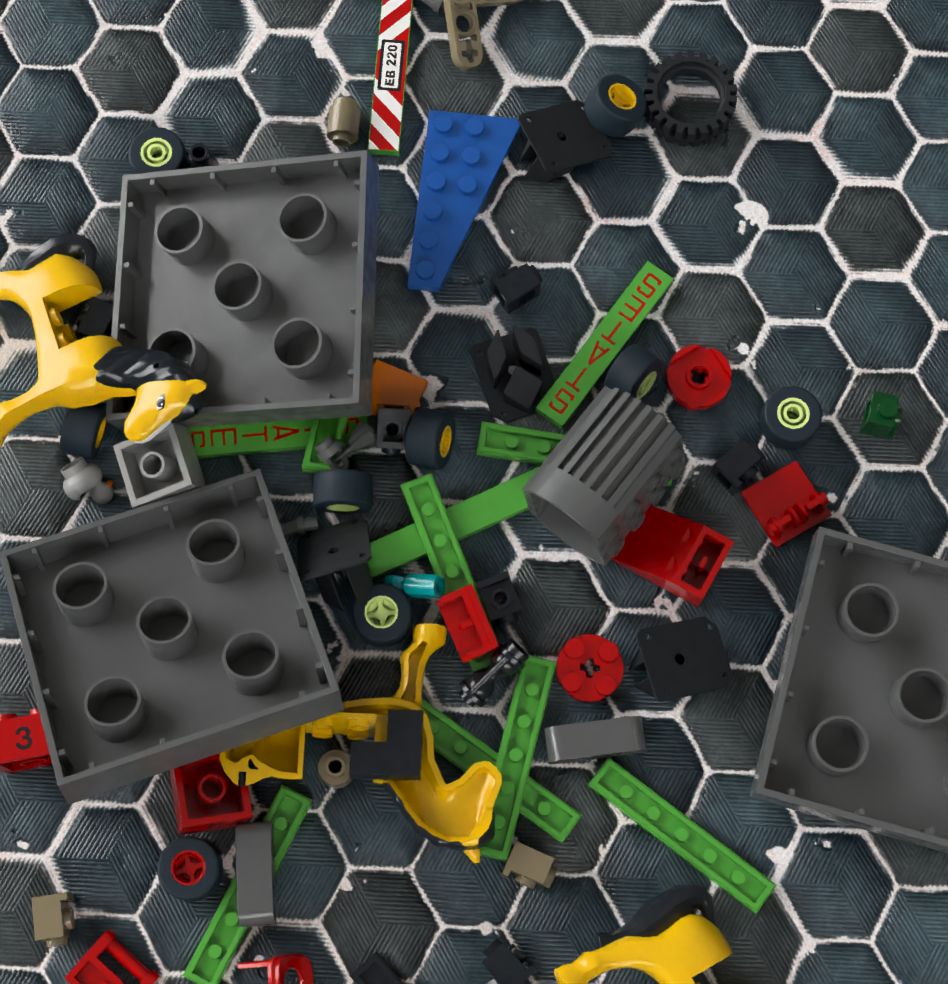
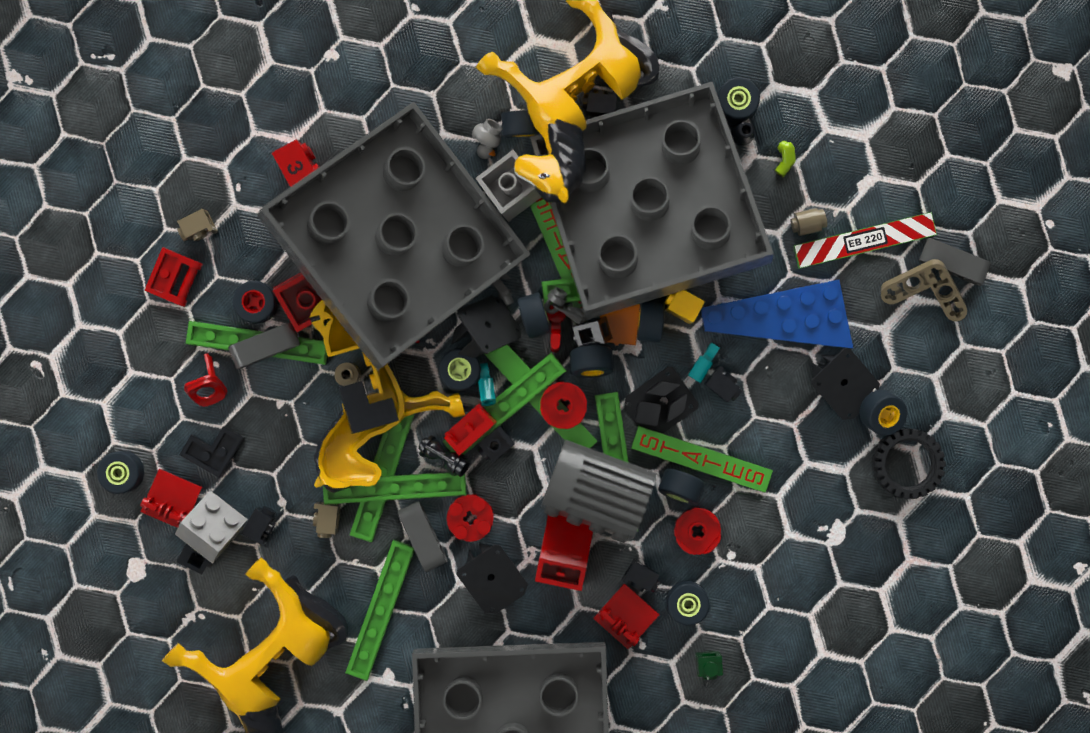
camera: 75 degrees right, 15 degrees up
(245, 120) = (788, 158): none -> lime arm
(382, 476) = (555, 319): none -> red piece
(397, 298) = (684, 305): none -> yellow brick
(402, 345) = (651, 321): none -> black wheel
(480, 303) = (703, 363): none -> teal bar
(487, 477) = (577, 405): none -> red plate

